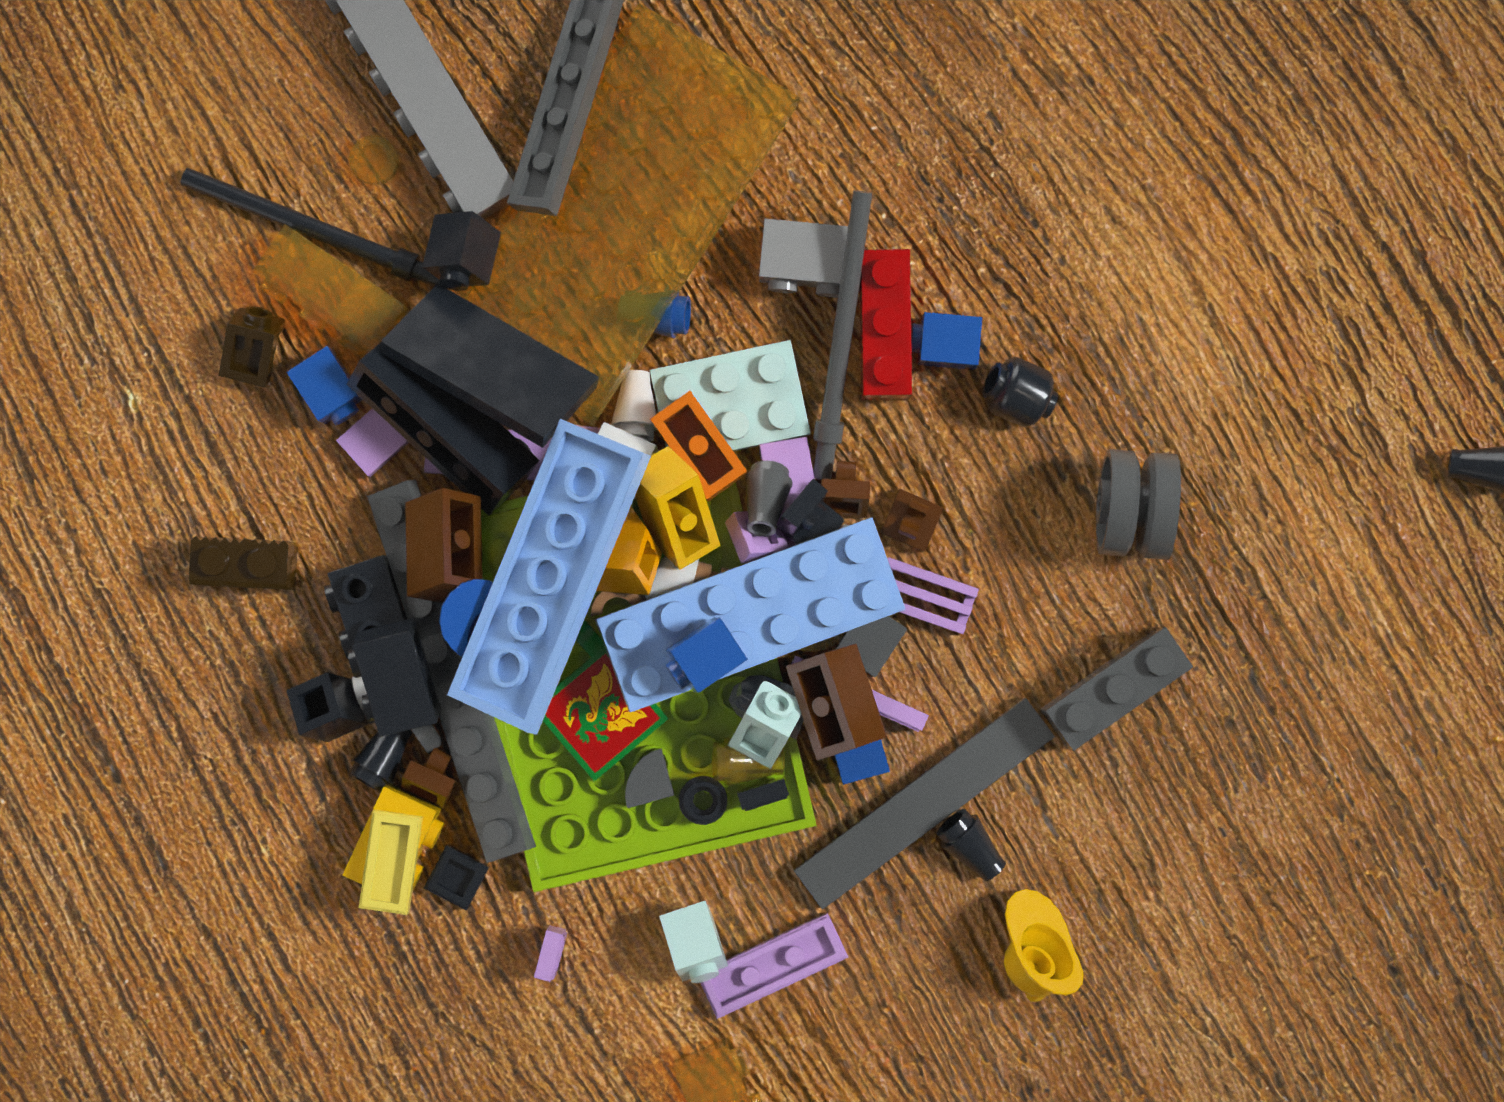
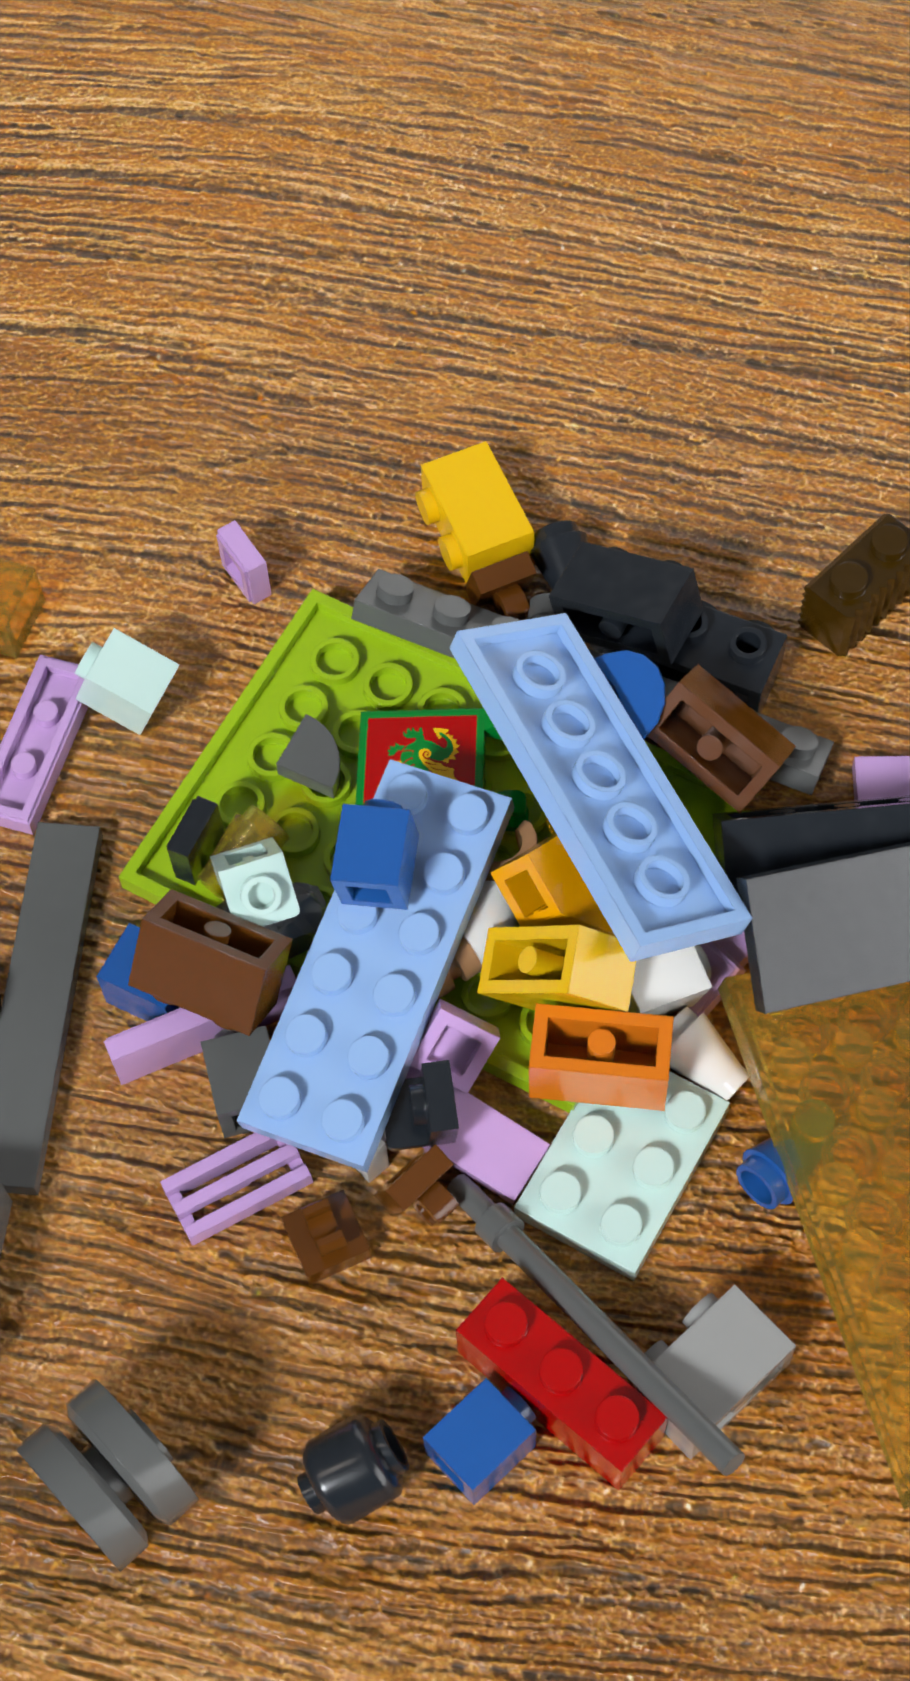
camera: 135 degrees right, 25 degrees down
(326, 707) = (662, 530): black brick -> none
(390, 862) = (458, 481): light yellow tile -> none
(457, 877) = (393, 547): black tile -> none
(698, 815) = (241, 773): black plate -> none
(766, 495) = (486, 1085): dark grey cone -> none

